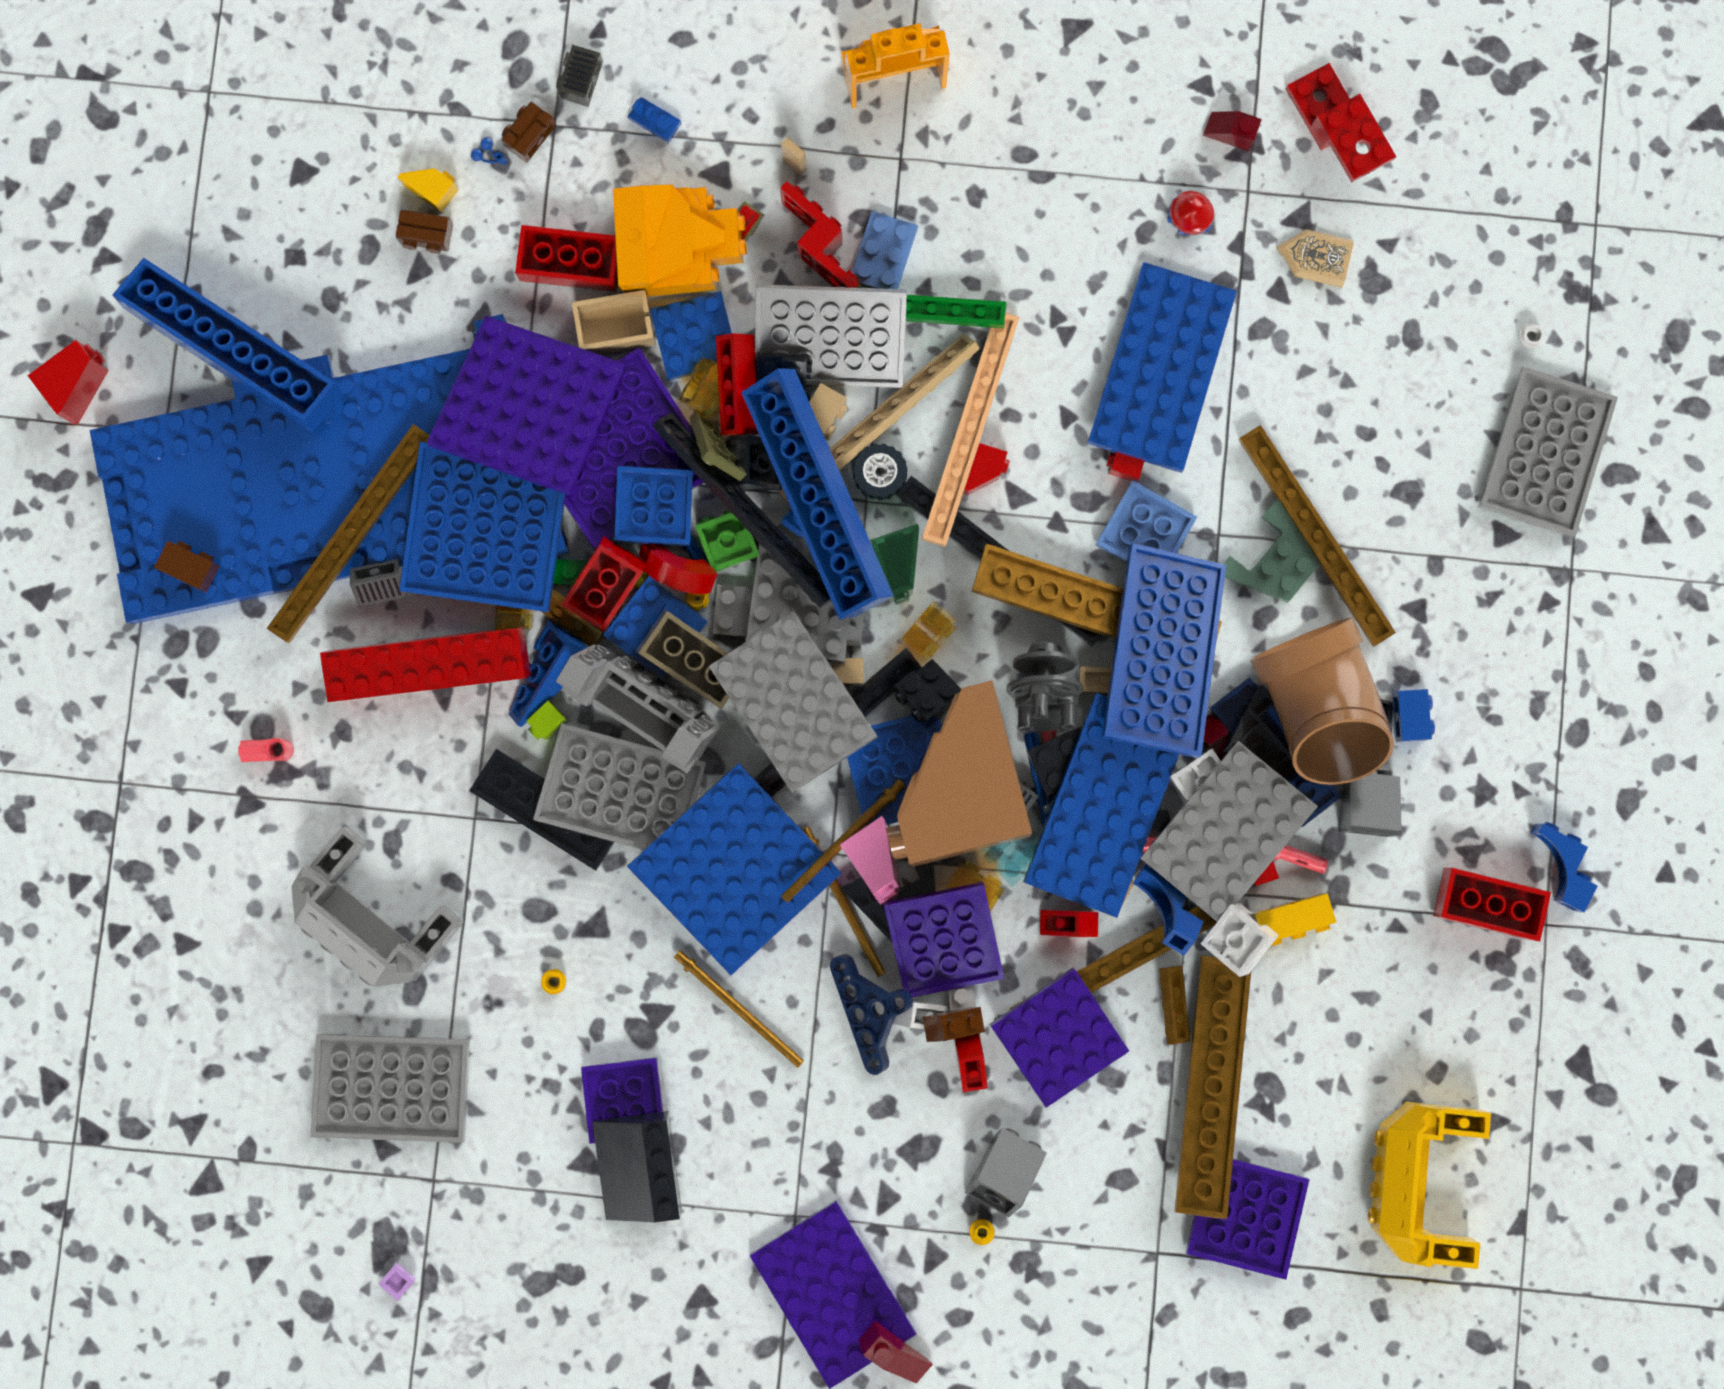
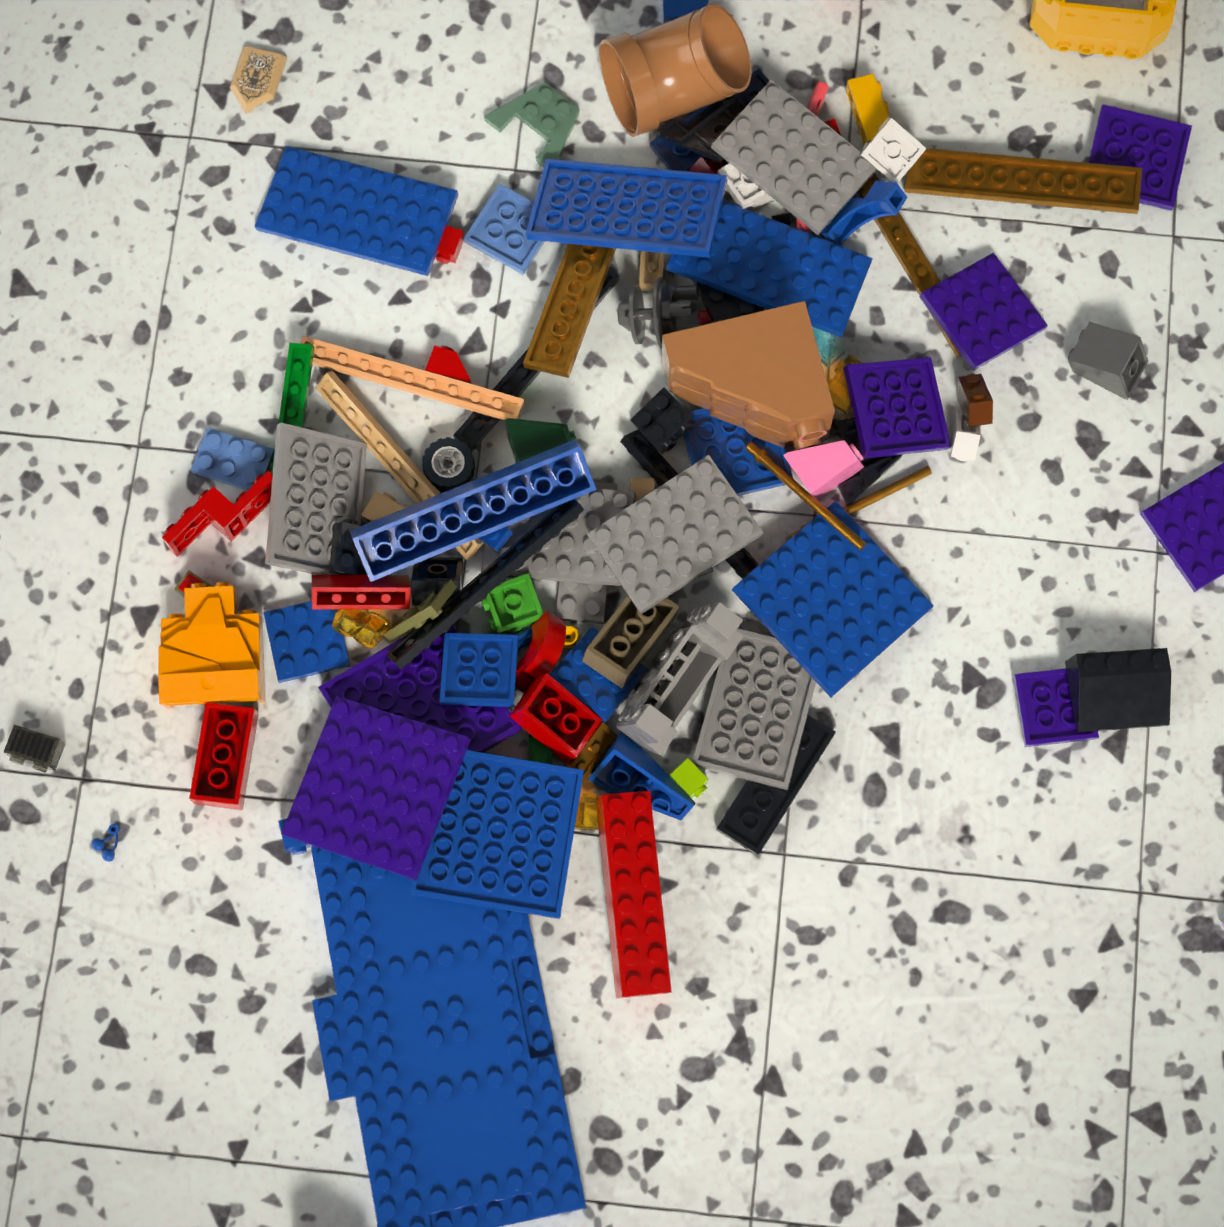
camera: 90 degrees left, 10 degrees down
(187, 566) = (530, 1136): reddish brown brick -> none
(228, 345) = (299, 1098): blue brick -> none
(264, 750) = (718, 1064): coral piece -> none
(348, 536) = (501, 968): pearl gold plate -> none
(353, 930) = (901, 964): light grey wedge -> none
(377, 582) = (549, 945): dark grey brick -> none
(390, 1088) = (1053, 932): light grey plate -> none
(424, 231) = (186, 904): reddish brown brick -> none
(431, 186) = (140, 898): yellow slope -> none
(528, 131) = (89, 799): reddish brown brick -> none
(545, 981) = (943, 766): yellow plate -> none
(614, 323) = (292, 711): tan piece -> none
(654, 119) = (84, 677): blue plate -> none
(739, 1009) = (925, 644): pearl gold bar -> none
(793, 156) = (133, 537): tan tile -> none
(874, 1023) = (951, 480): dark blue beam -> none
(895, 53) = (43, 444): light orange panel -> none
(929, 630) = (603, 421): clear yellow brick -> none
(961, 998) = (950, 398): white plate -> none
(971, 1063) = (1010, 388): red slope -> none
(975, 1226) = (1163, 389): yellow plate -> none
(1069, 923) = (878, 302): red slope -> none
(1174, 1005) = (950, 213): pearl gold plate -> none
(1191, 213) = (210, 183): red hair -> none
(1233, 128) = (130, 144): dark red slope -> none
(1317, 536) = (514, 85): pearl gold plate -> none
(1340, 122) = (132, 51): red bracket -> none
(1372, 805) = (770, 41): slope -> none

